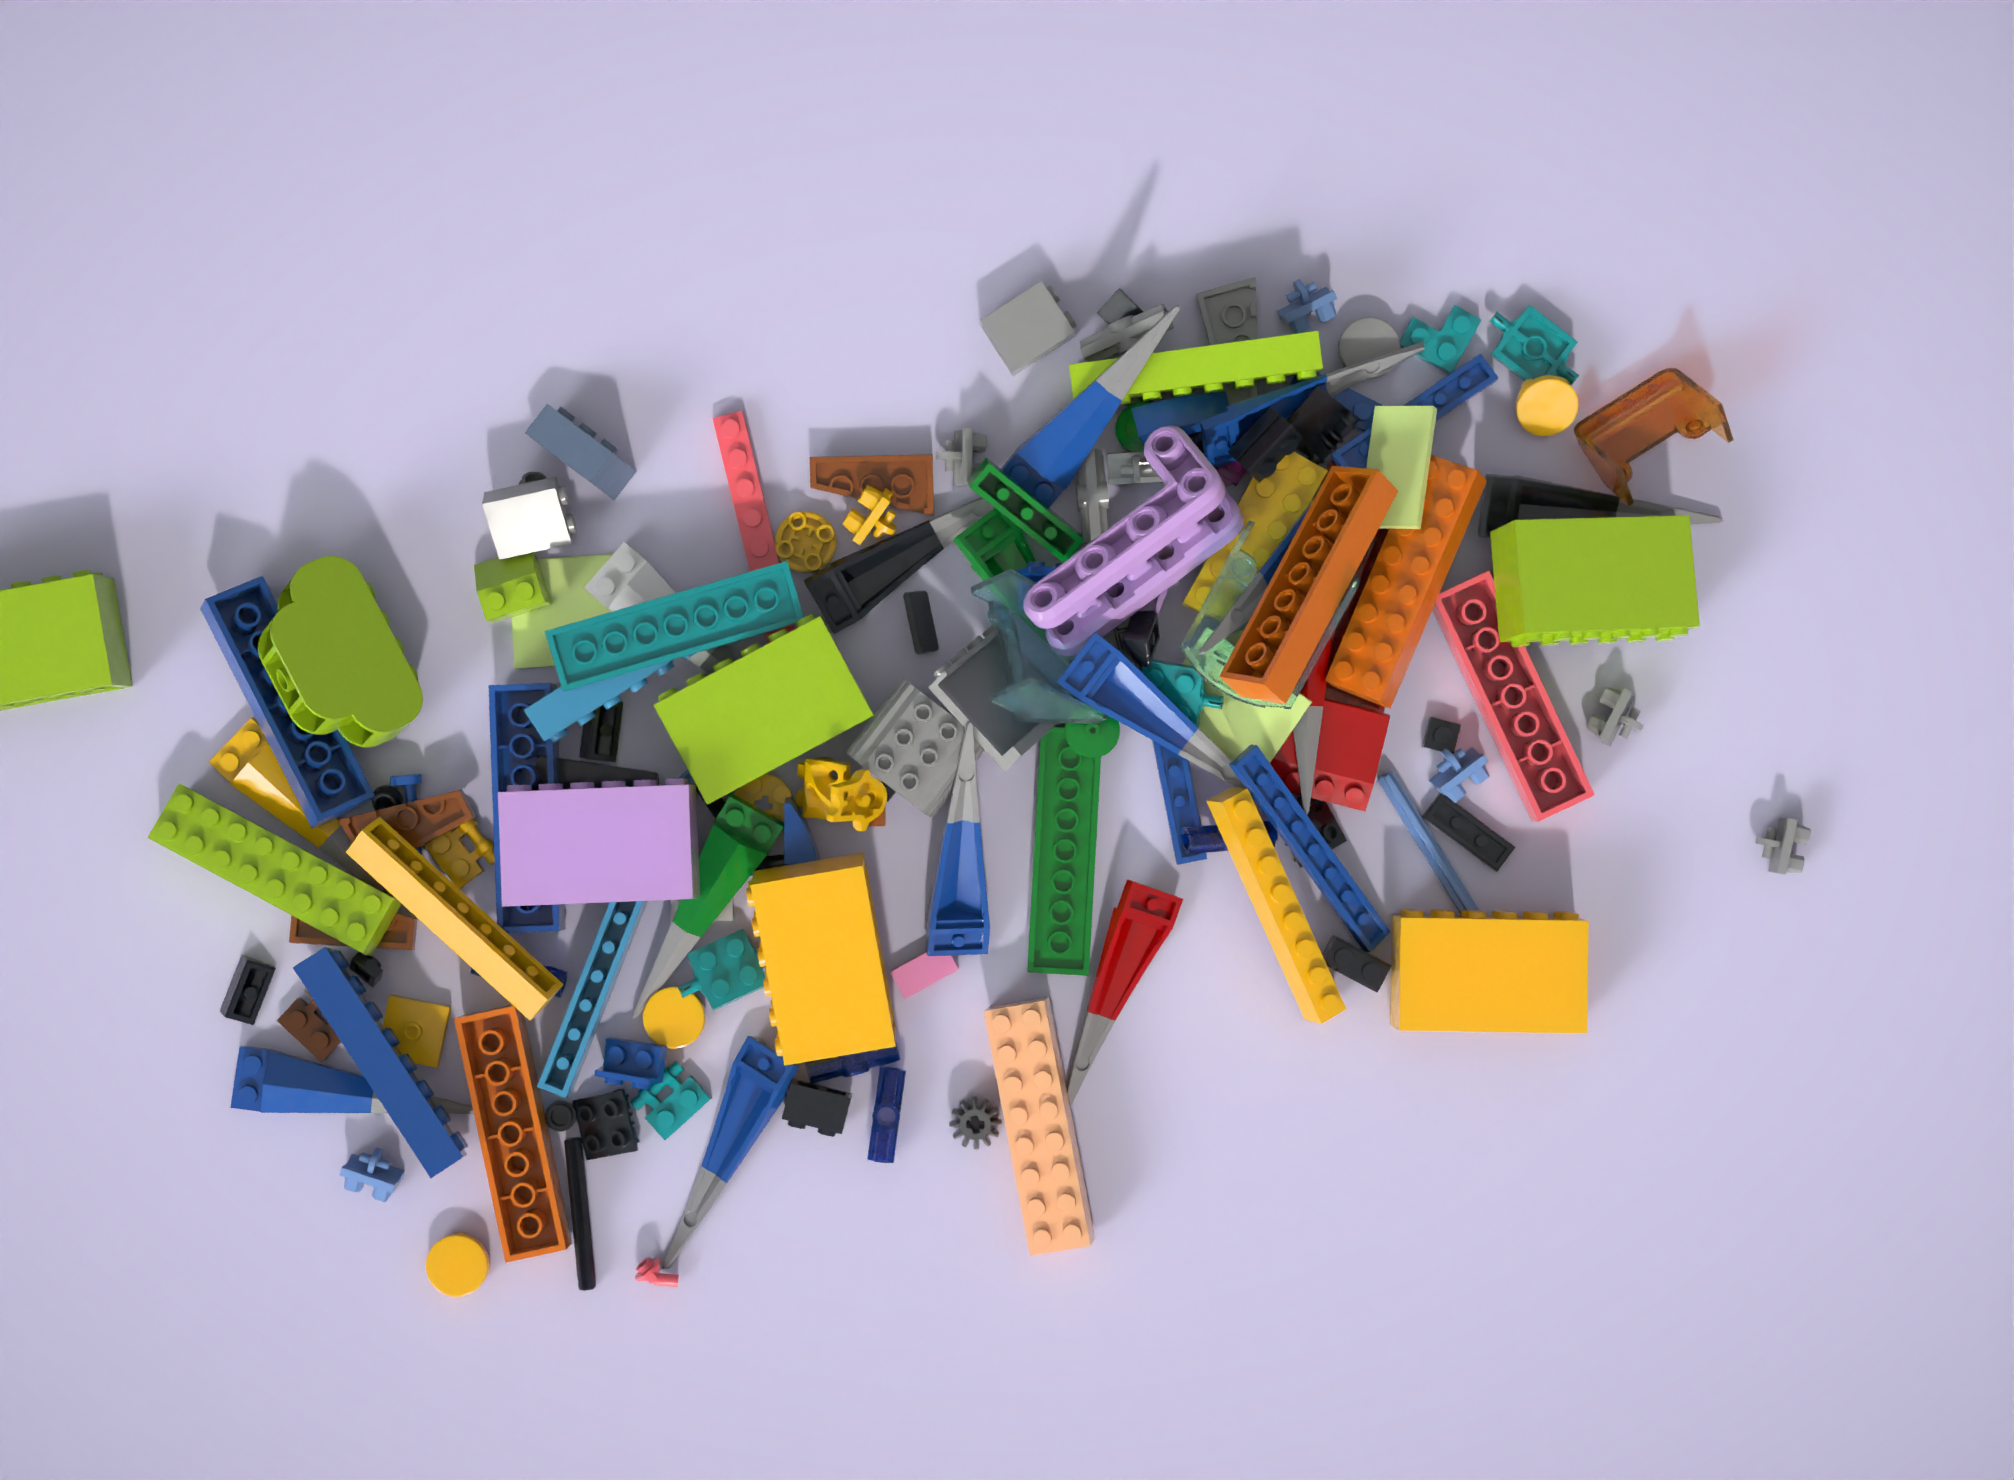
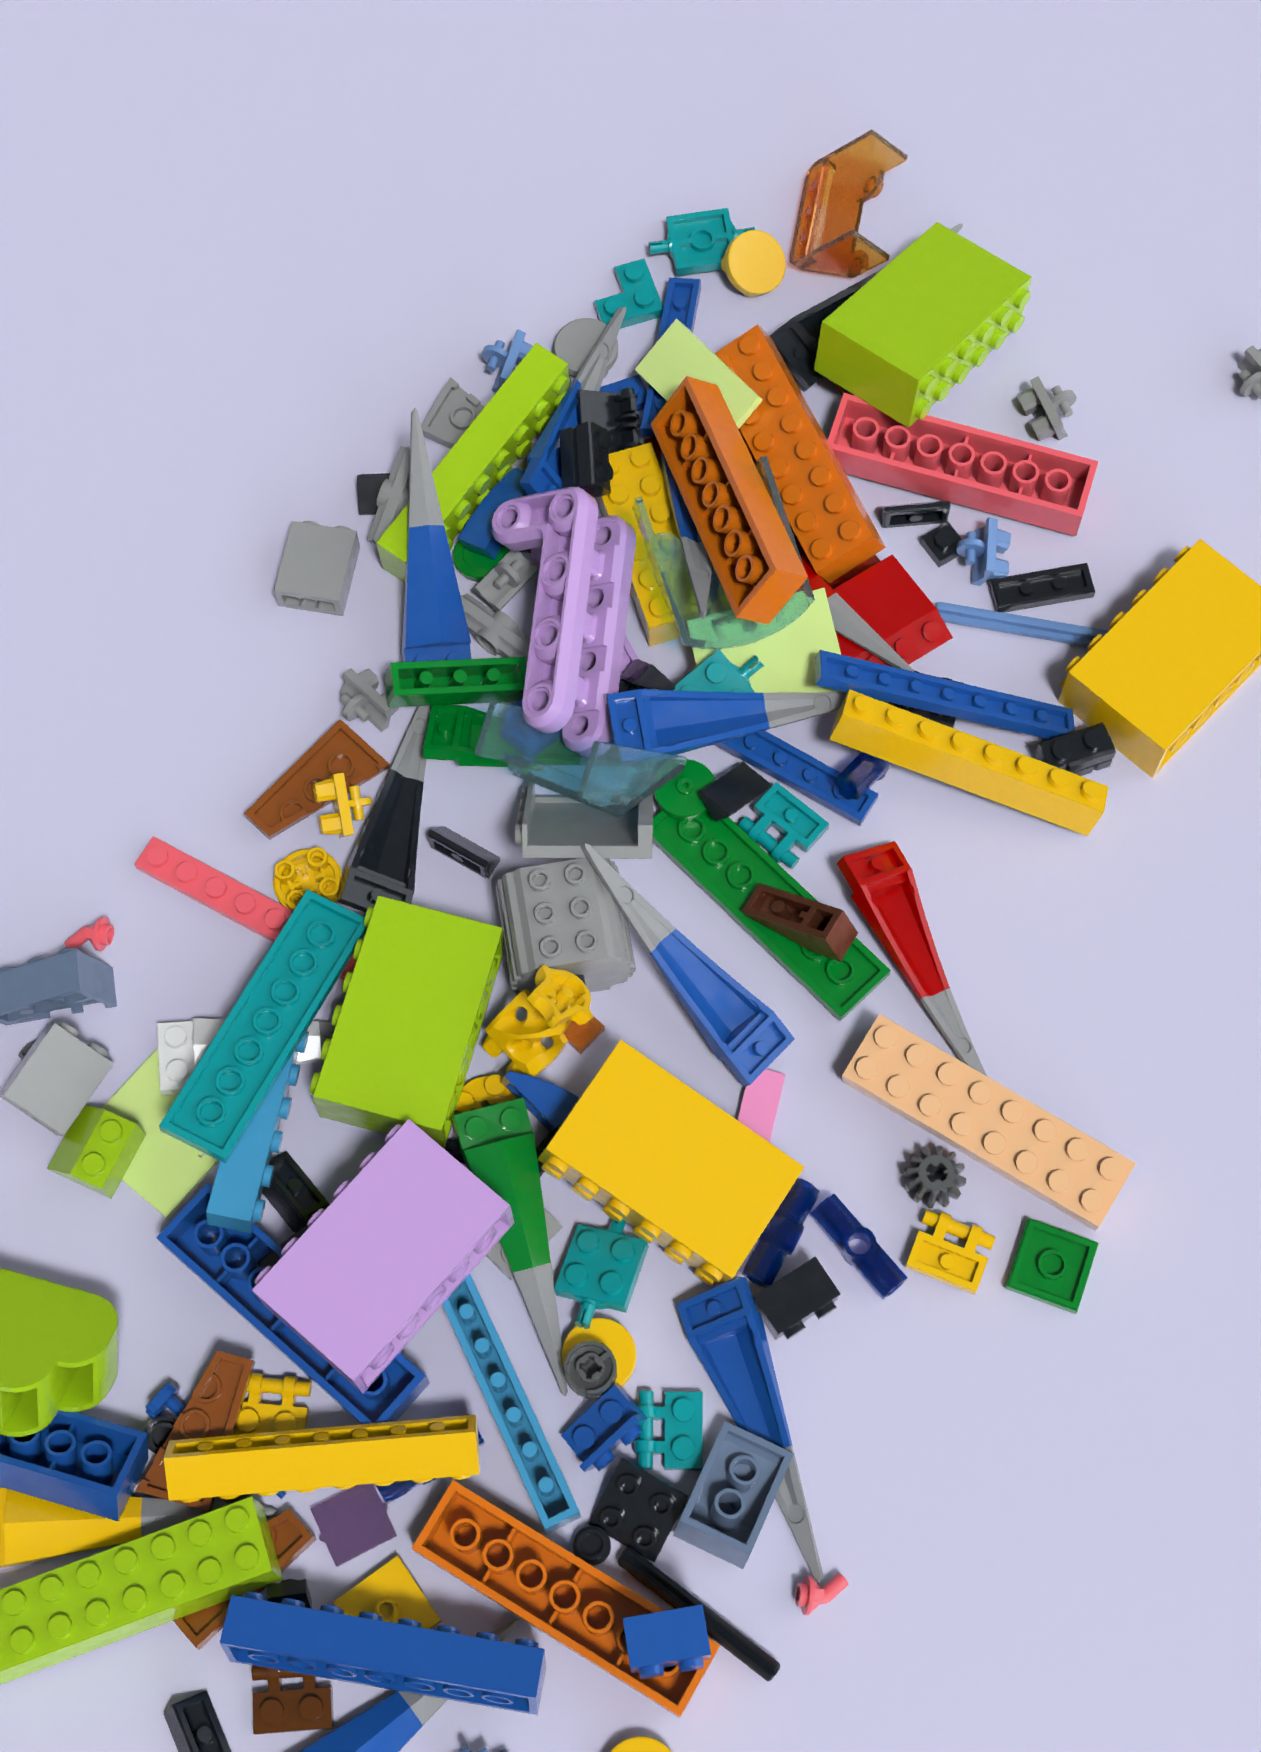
camera: 45 degrees left, 20 degrees down
(441, 965) = (353, 1523): none -> clear purple piece
(532, 1223) = (667, 1641): none -> blue brick
(644, 443) = (99, 934): none -> coral plate
(657, 1024) = (590, 1369): none -> dark grey wheel
(665, 1175) = (733, 1494): none -> sand blue slope
(928, 1176) = (945, 1260): none -> yellow plate
(986, 1241) = (1051, 1265): none -> green tile
(1065, 891) = (802, 920): none -> copper slope
(1119, 764) = (733, 791): none -> black slope
(1138, 815) = (791, 818): none -> teal plate
(1448, 693) = (914, 514): none -> black slope

